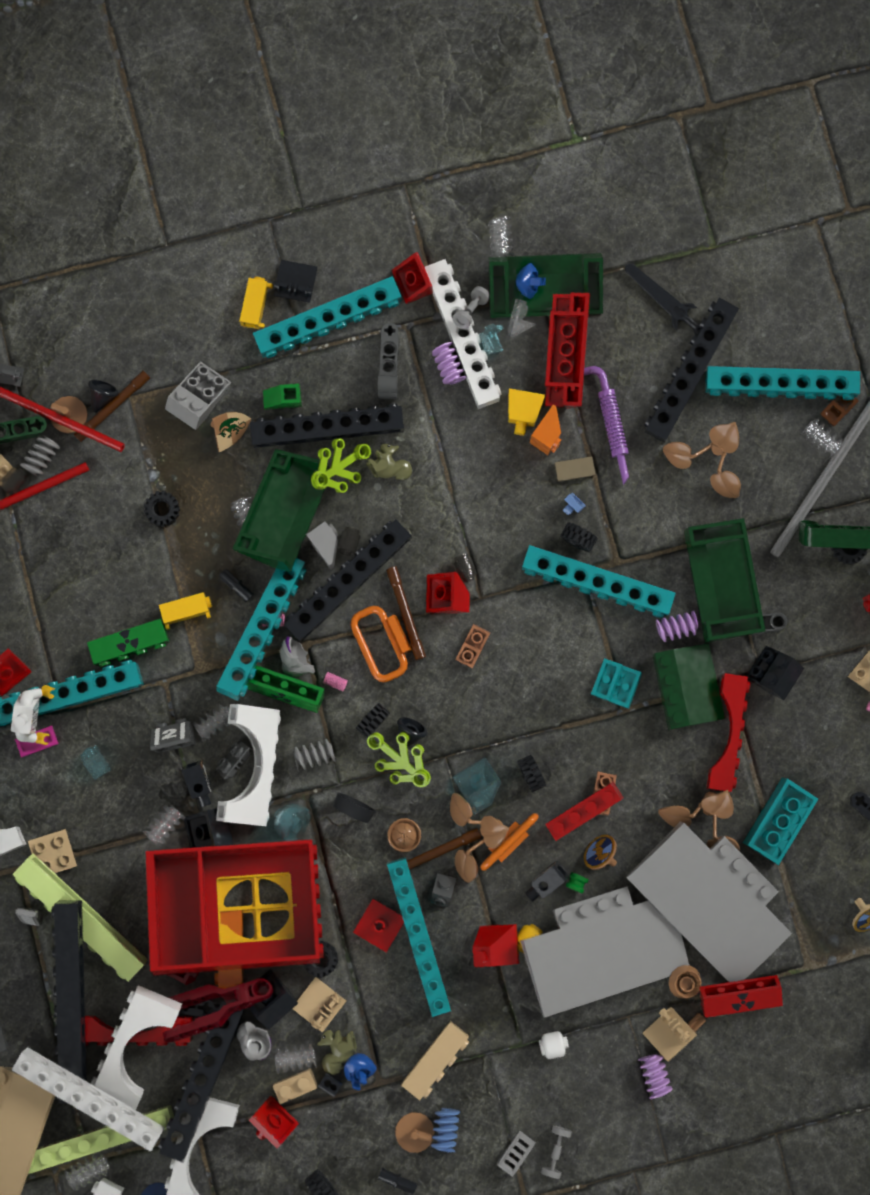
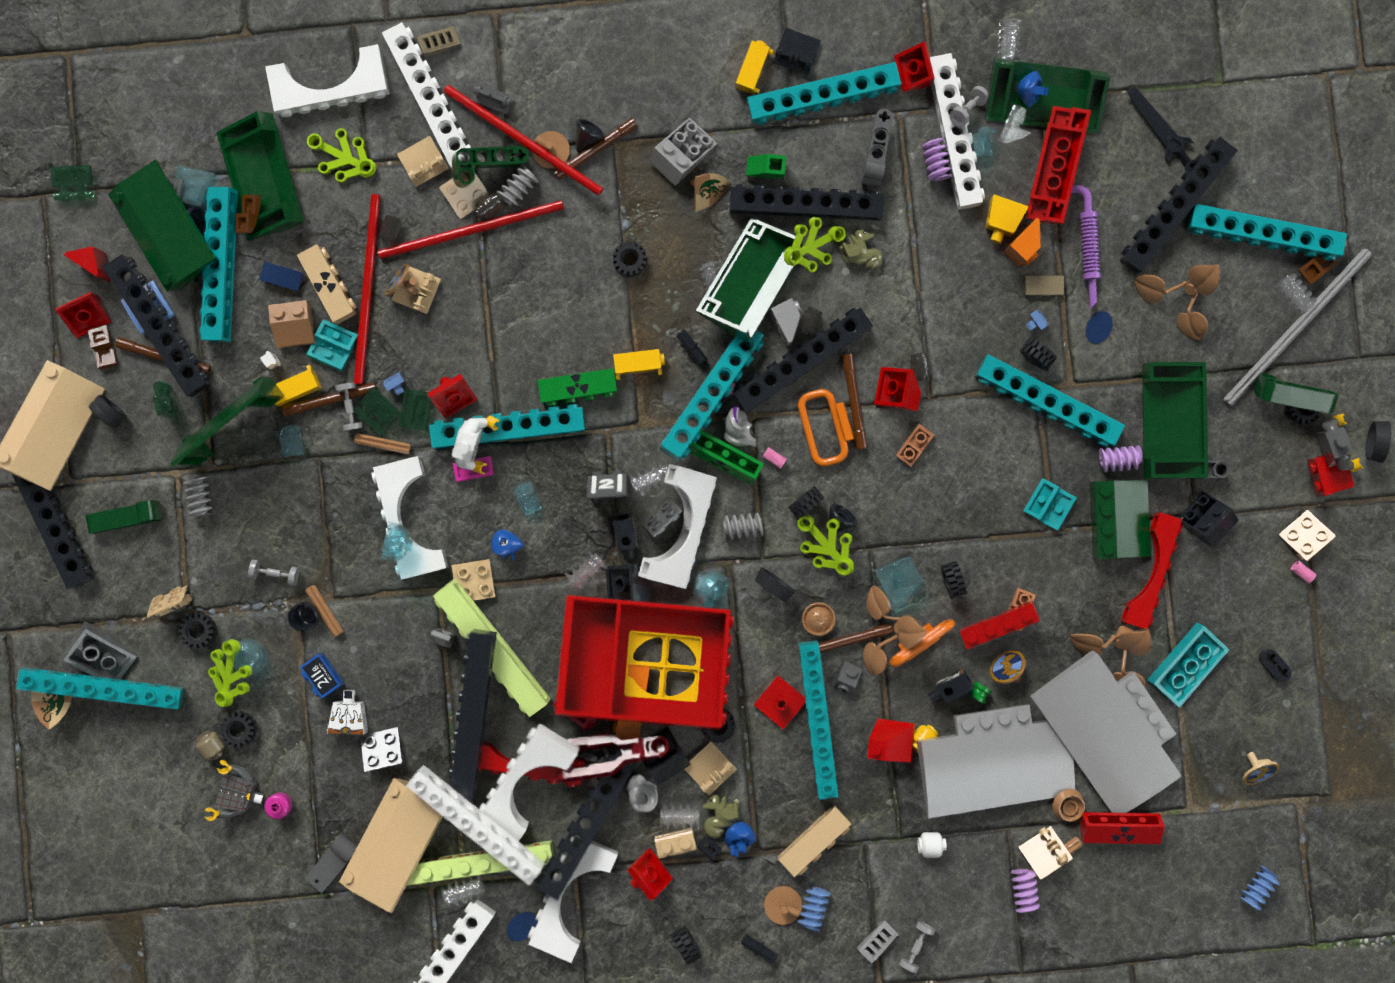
camera: 10 degrees right, 5 degrees up
(79, 810) = (505, 543): none -> blue piece
(636, 501) = (1099, 327): none -> dark blue sticker

